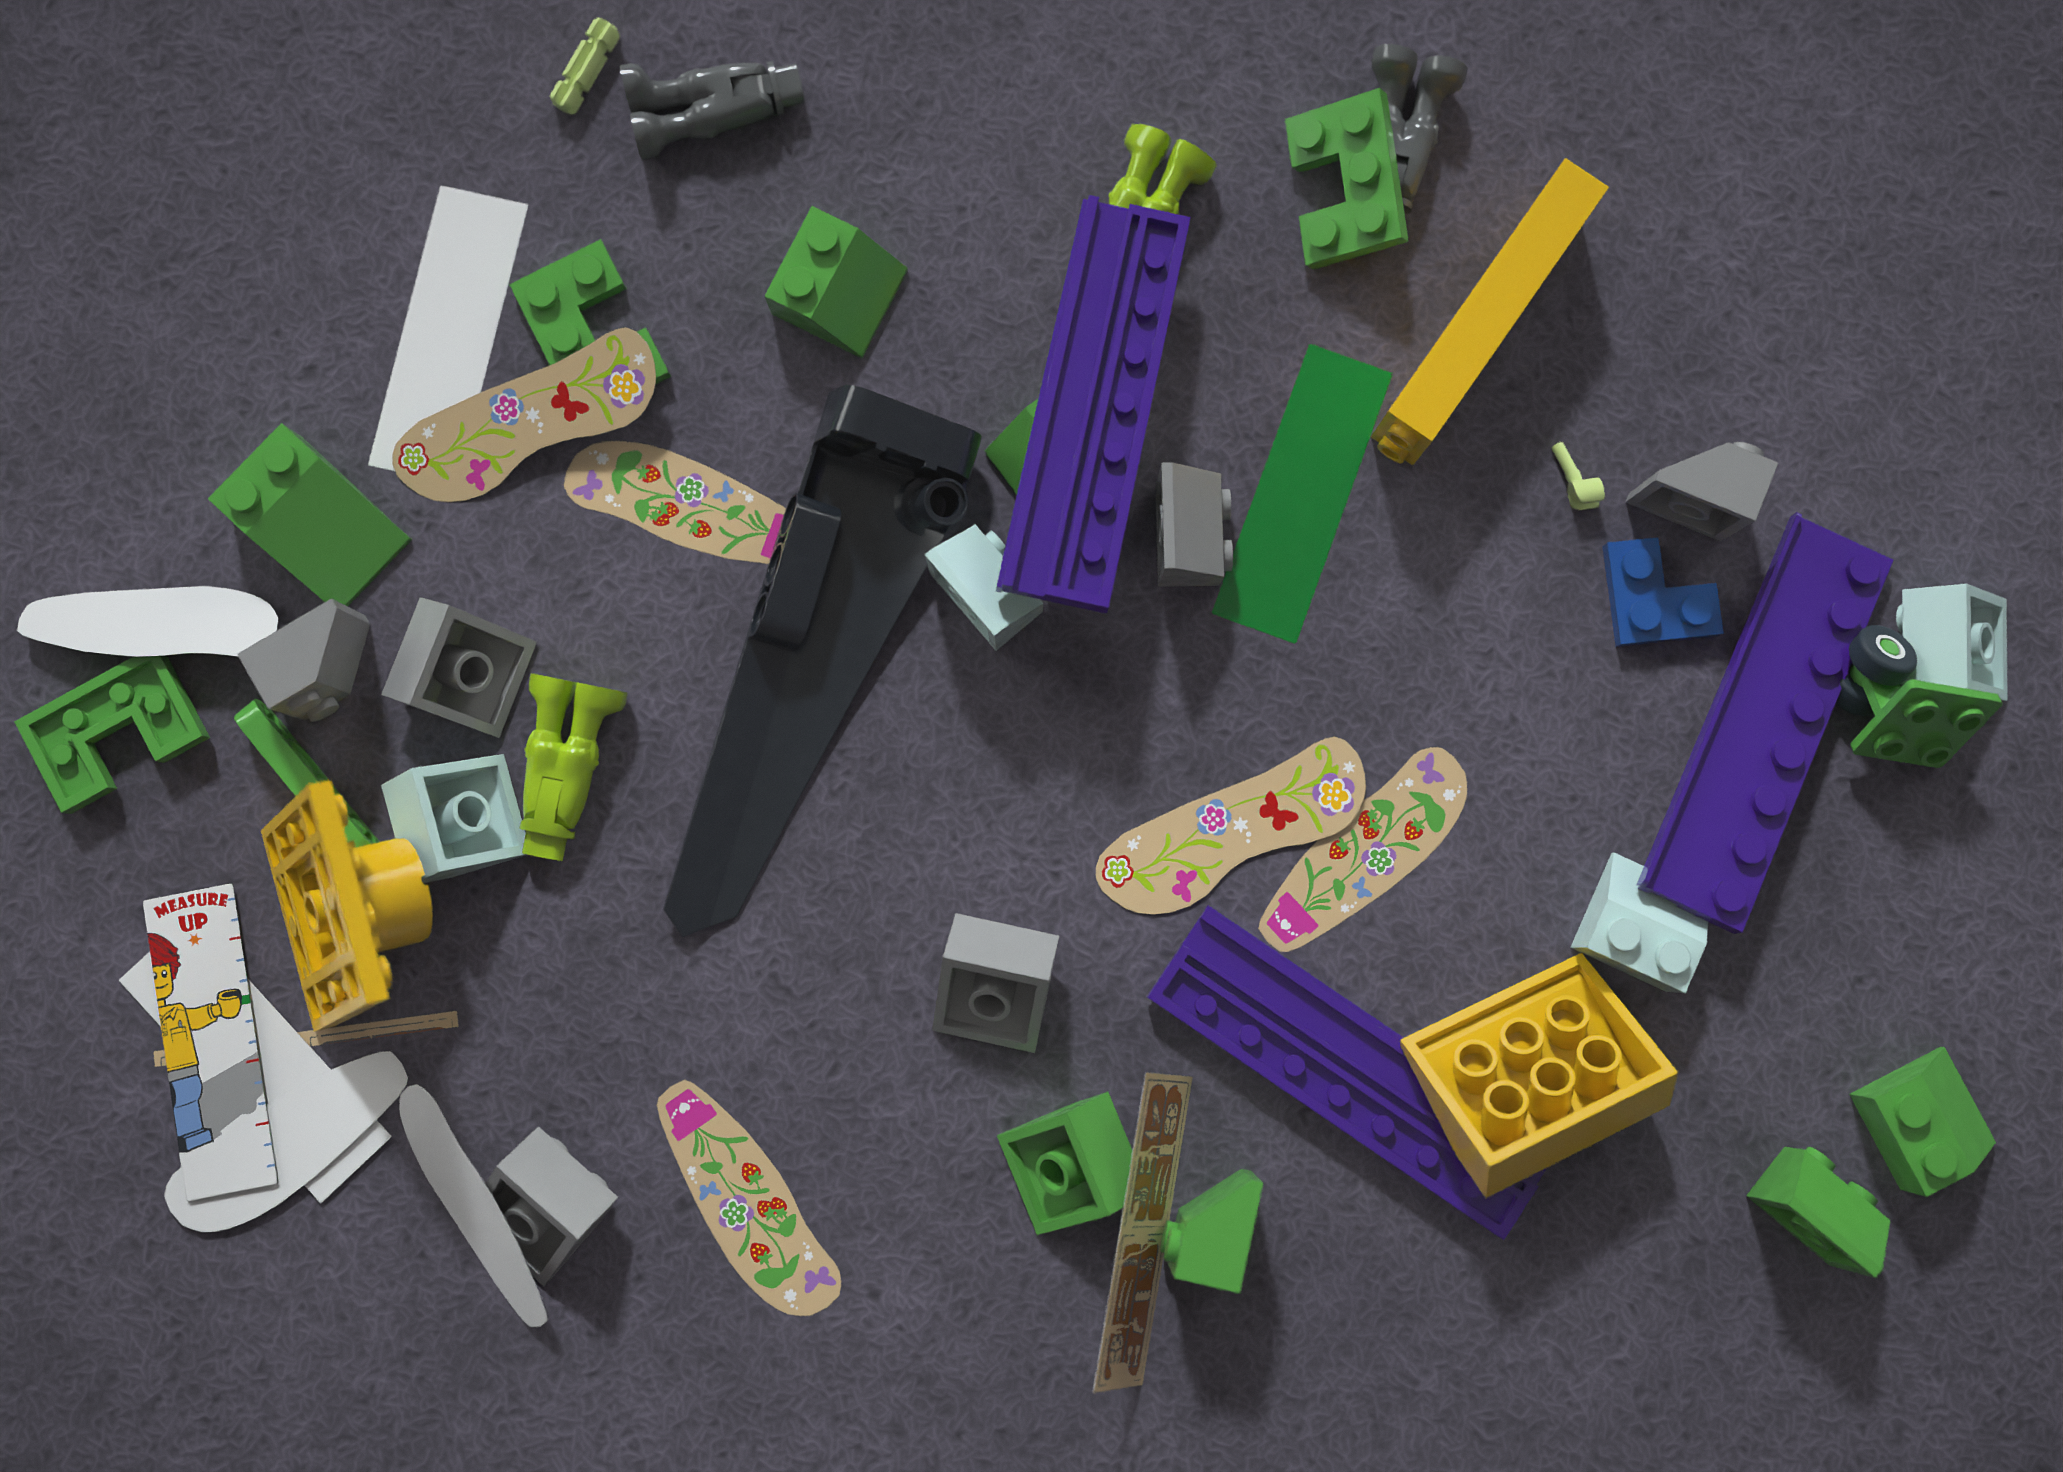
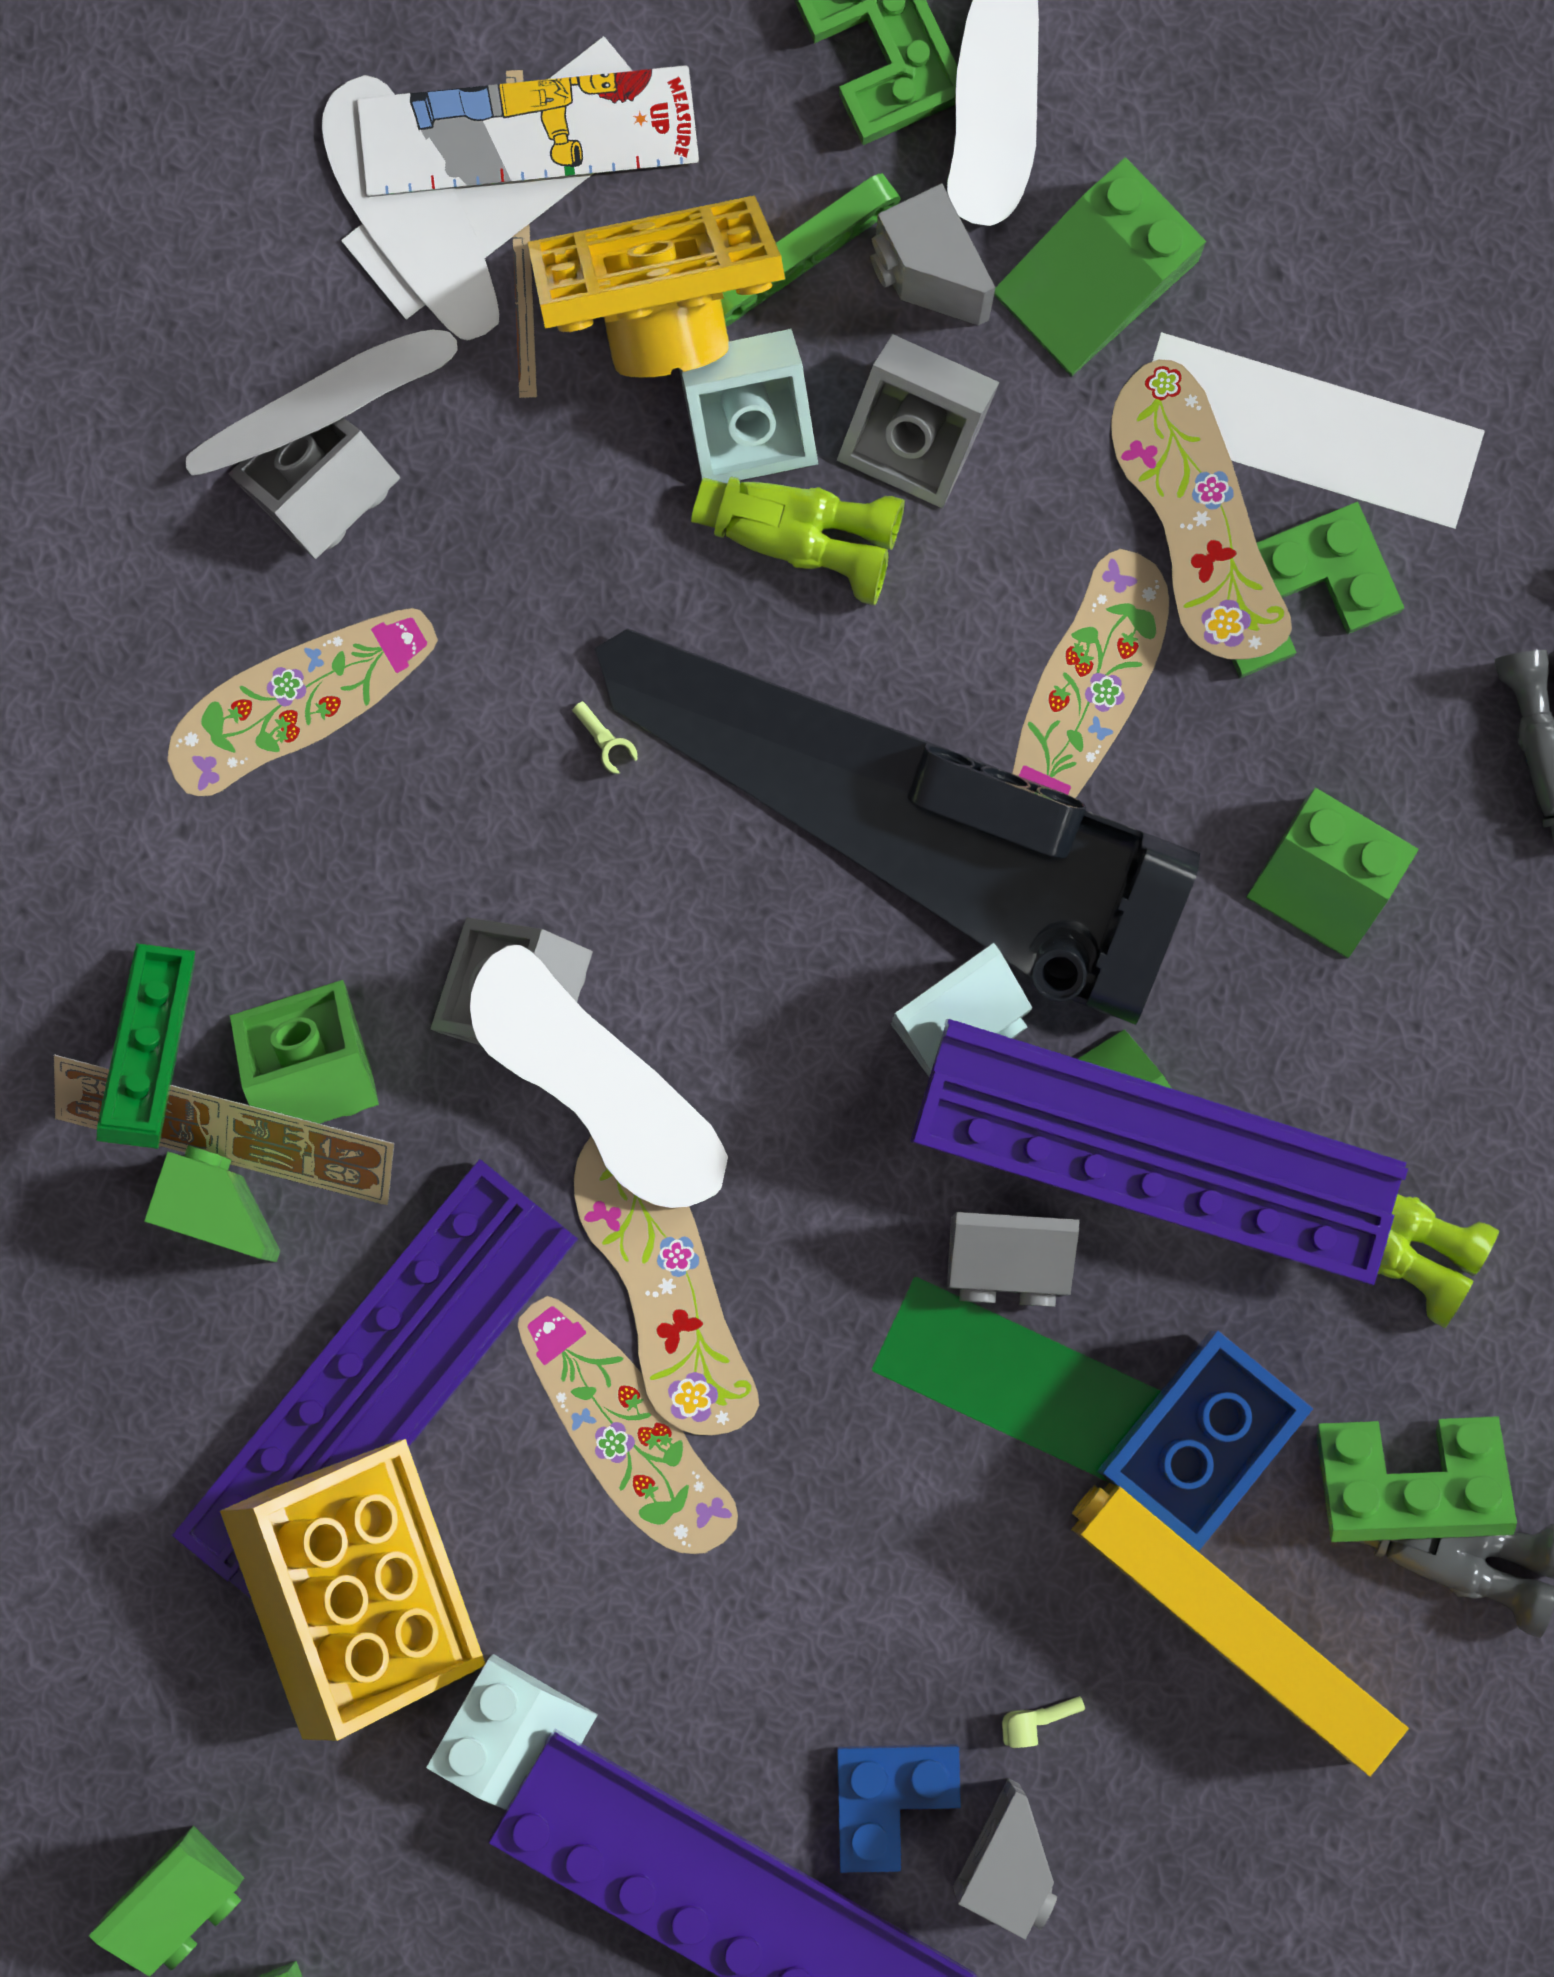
camera: 95 degrees right, 0 degrees up
(762, 922) = (602, 736): none -> yellowish green hand
(1078, 1308) = (146, 1046): none -> green tile
(1099, 862) = (636, 1119): none -> white sticker
(1332, 352) = (1205, 1439): none -> blue brick

